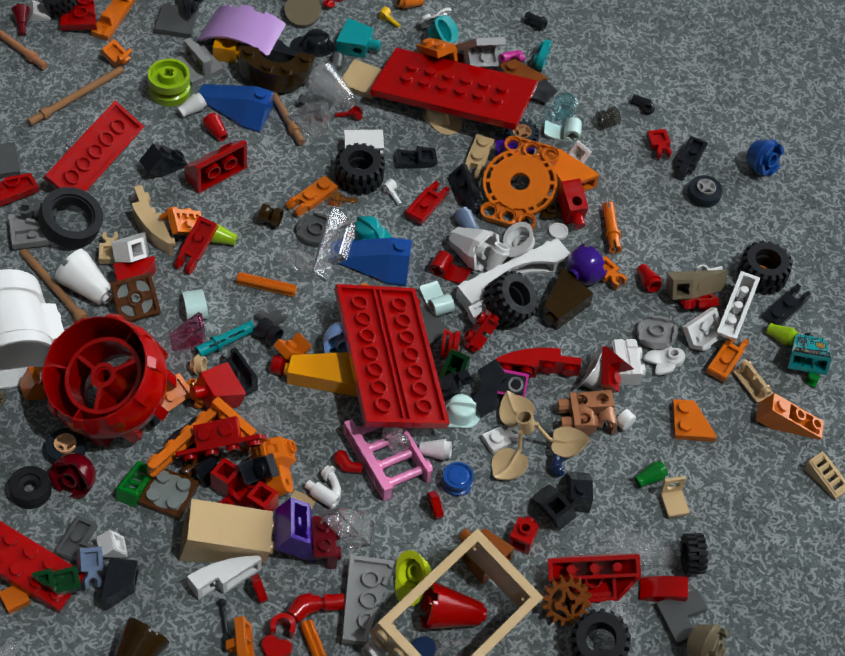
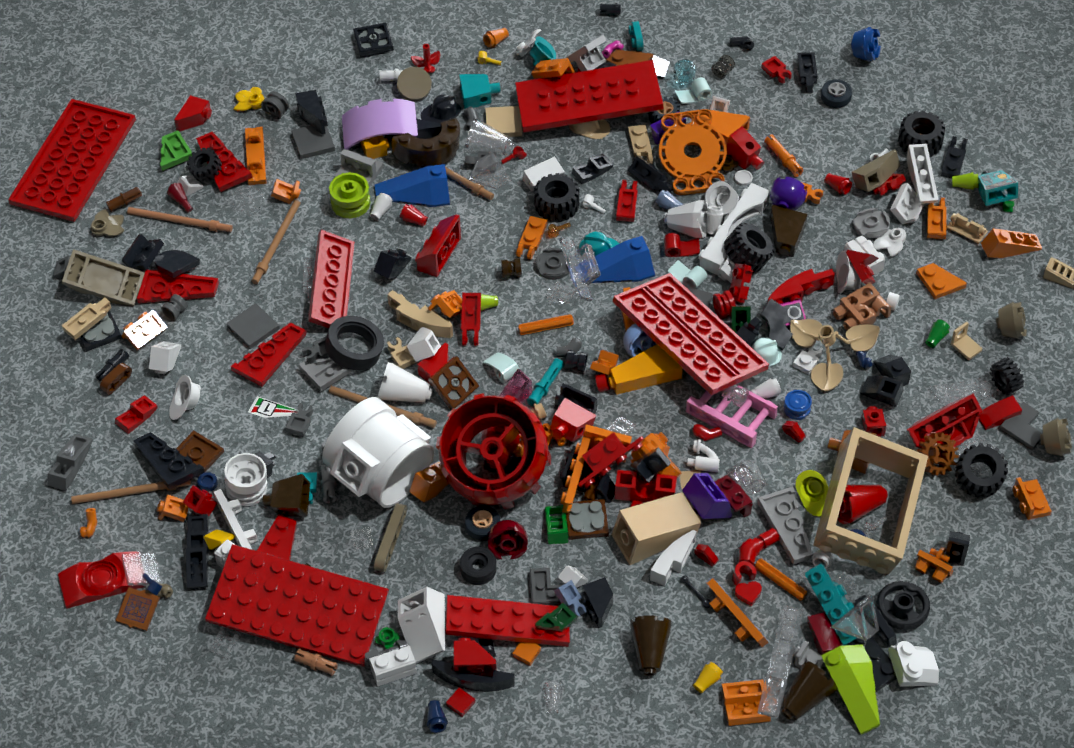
camera: 20 degrees left, 0 degrees up
(737, 498) = (1012, 320): none -> dark tan cone

